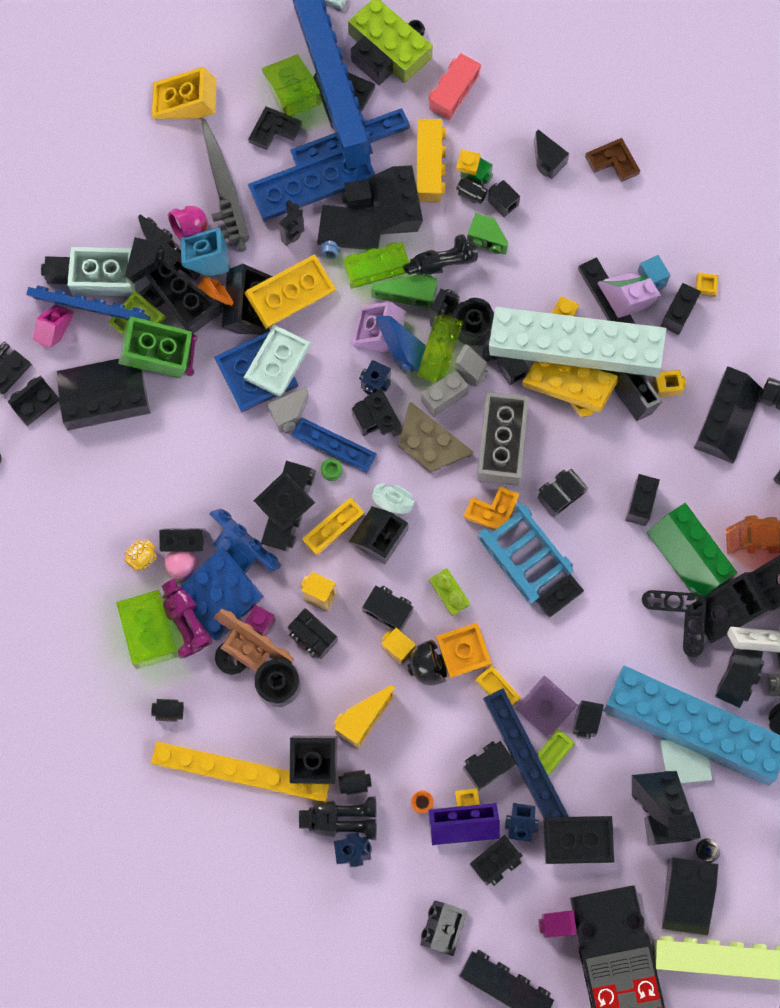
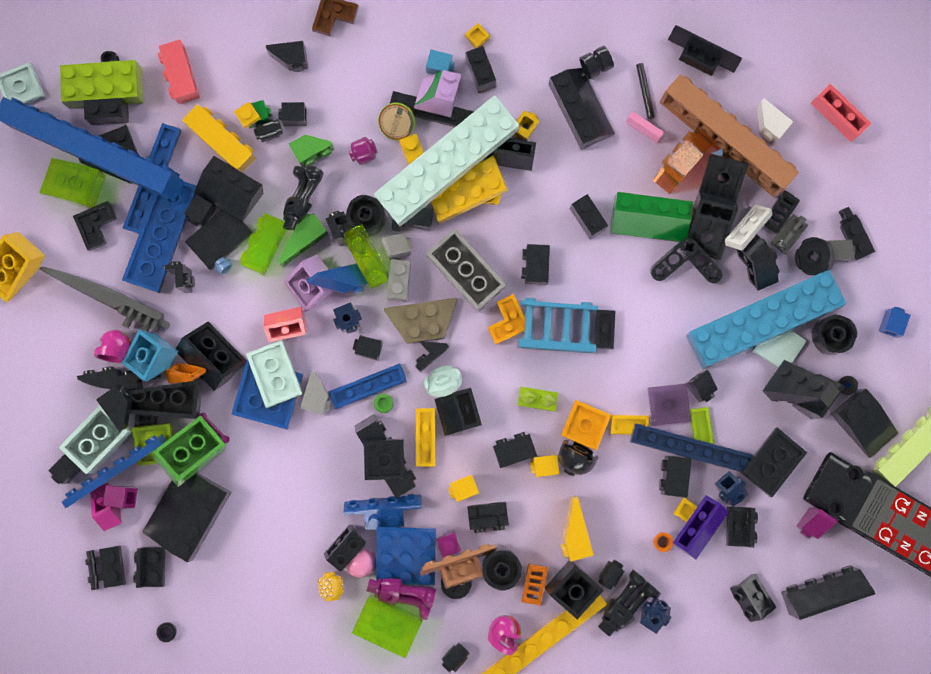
camera: 50 degrees left, 10 degrees up
(72, 325) = (120, 496): none -> magenta slope
(228, 732) = (507, 630): none -> dark pink helmet
(290, 291) = (231, 321): yellow plate -> none
(292, 731) = (538, 568): none -> orange slope
(325, 335) = (284, 324): none -> coral brick
(383, 413) = (376, 335): black bracket -> none
(412, 473) = (434, 349): none -> black slope
(525, 275) = (363, 150): none -> magenta head
(574, 280) = (396, 121): none -> piece
(750, 791) = (845, 334): none -> black brick
(763, 481) = (644, 127): none -> bright pink tile

